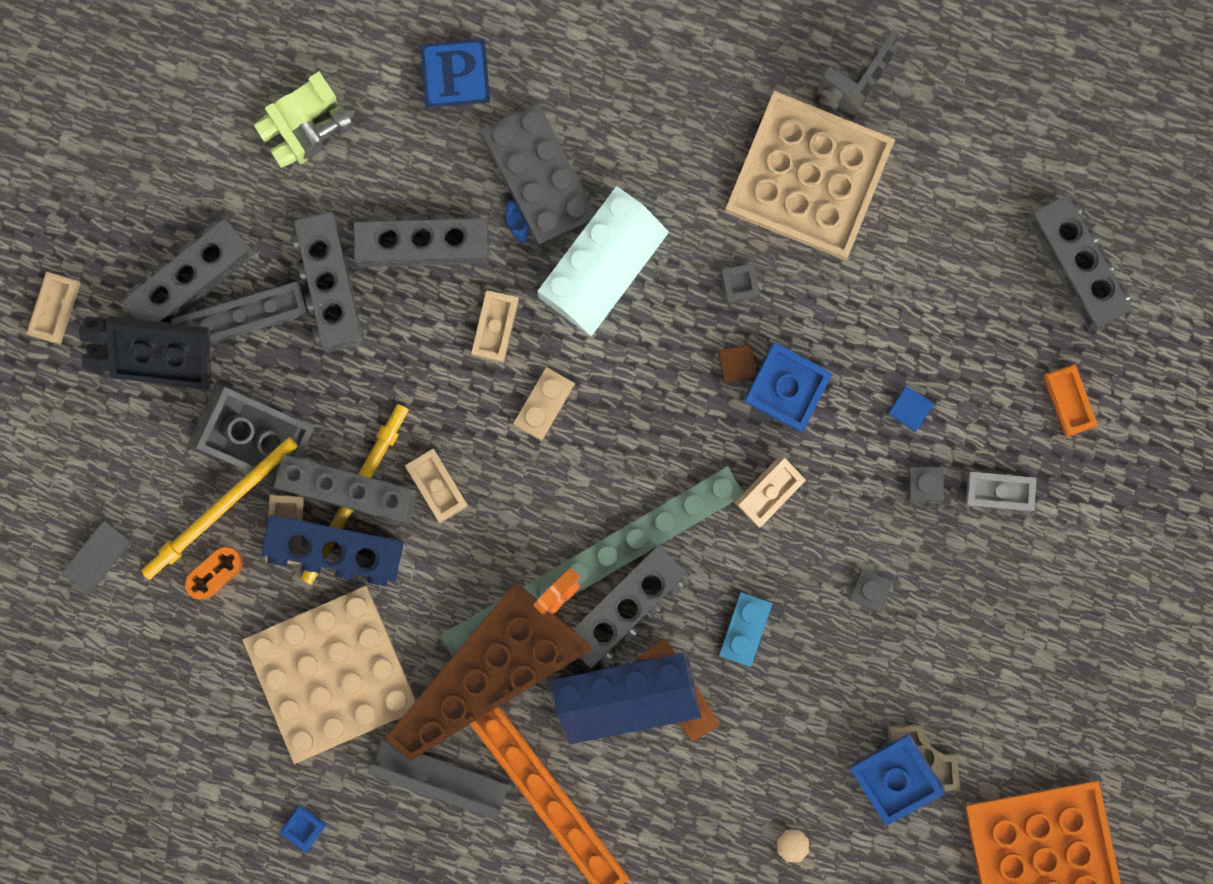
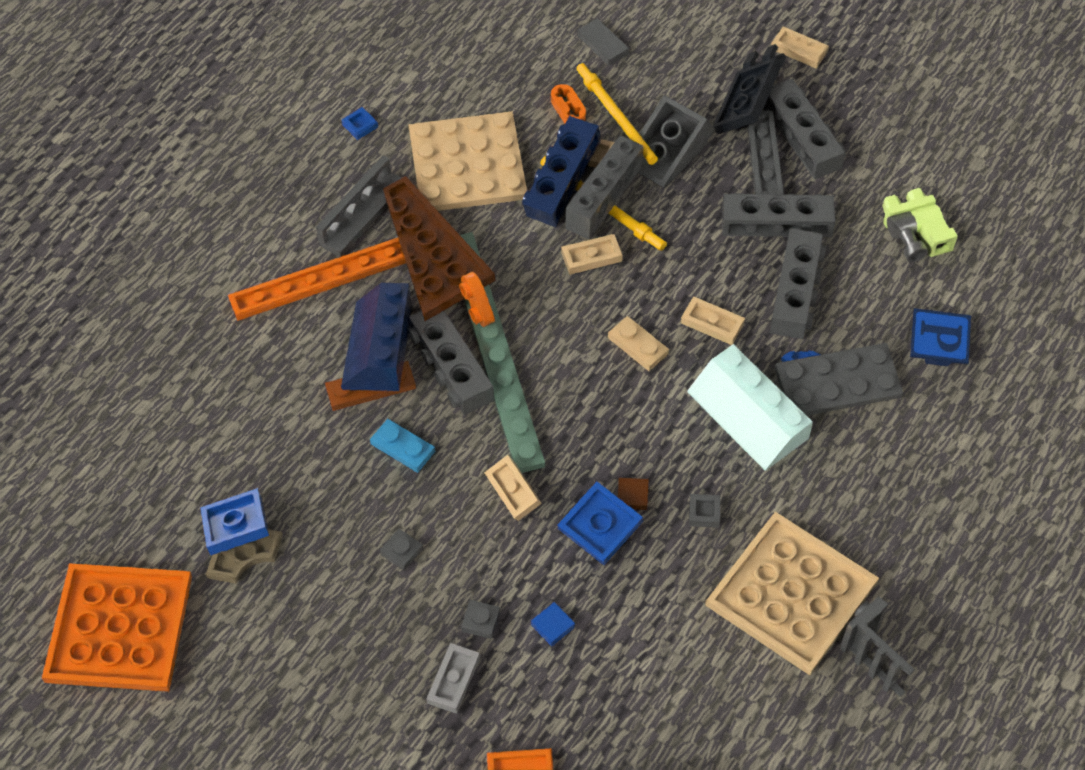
camera: 110 degrees right, 25 degrees down
(792, 845) = (213, 437): tan tile -> none

